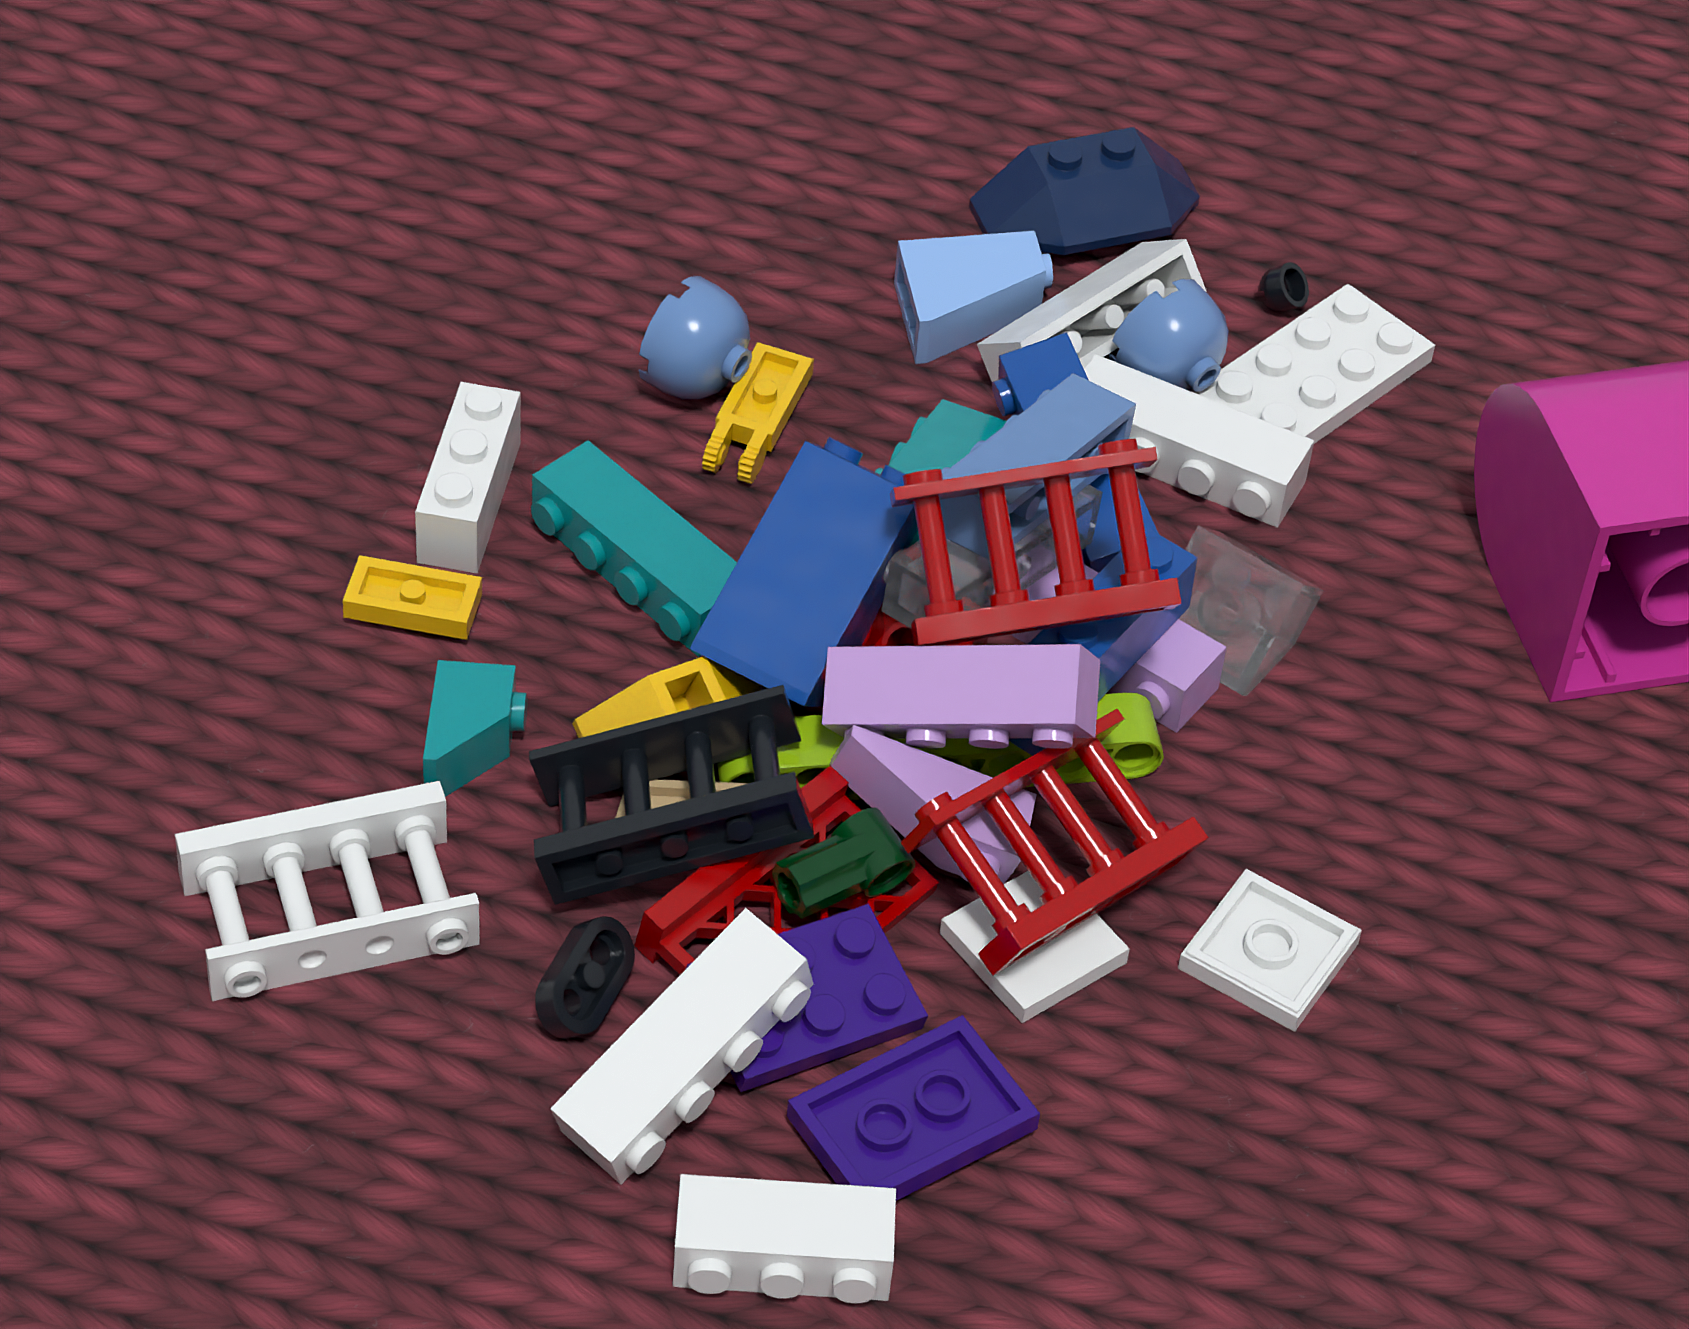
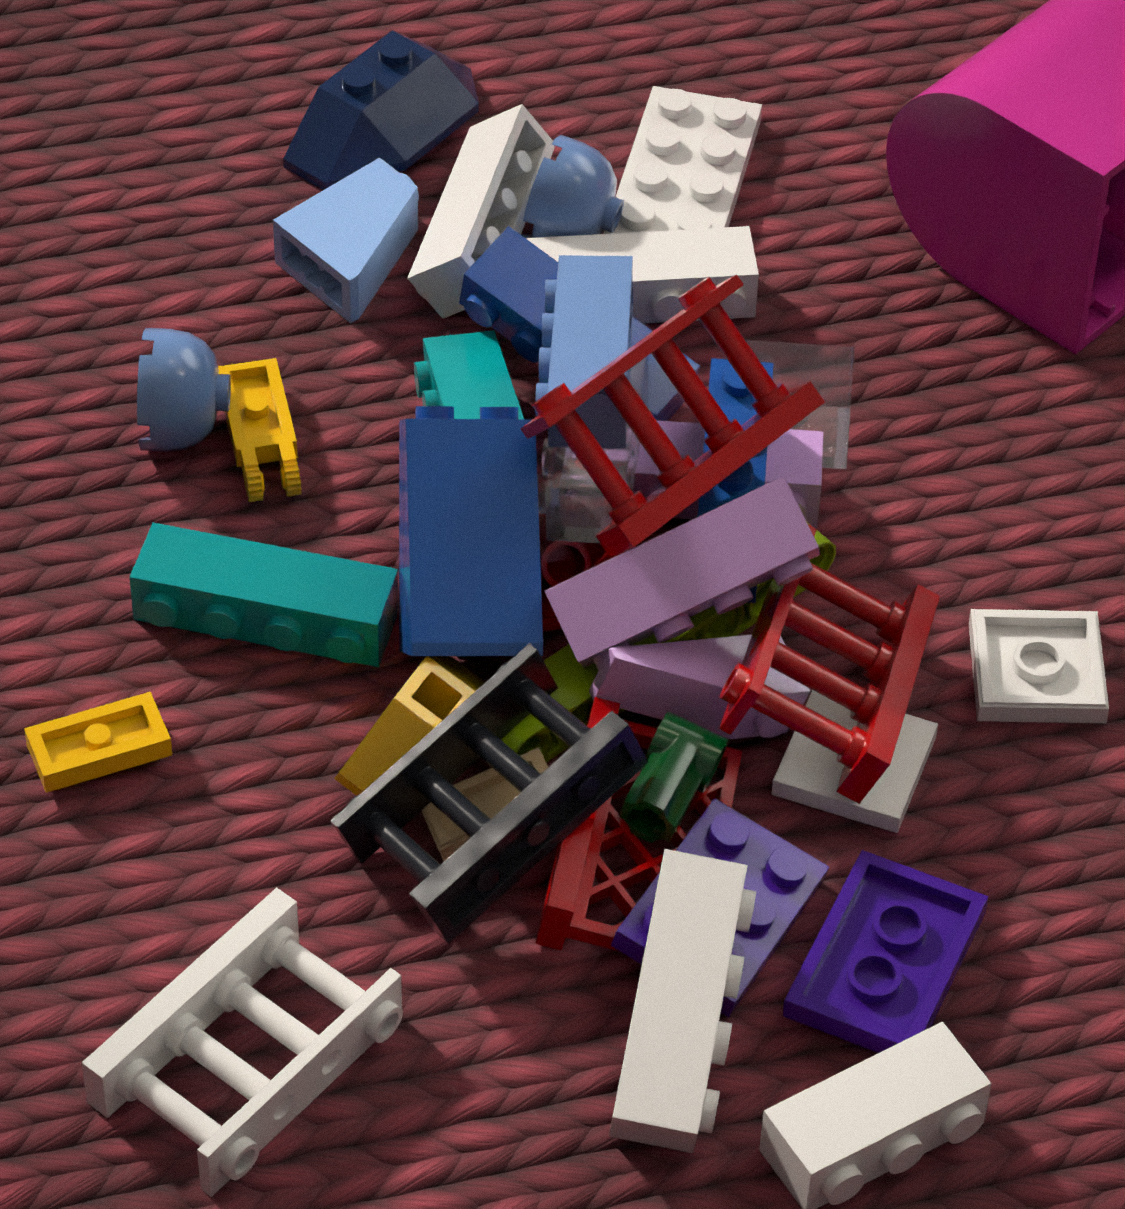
camera: 30 degrees left, 0 degrees up
(468, 477) = (64, 609): white brick -> none
(471, 721) = (242, 824): teal slope -> none
(581, 990) = (528, 992): black plate -> none
(1284, 287) = (606, 112): black hinge -> none

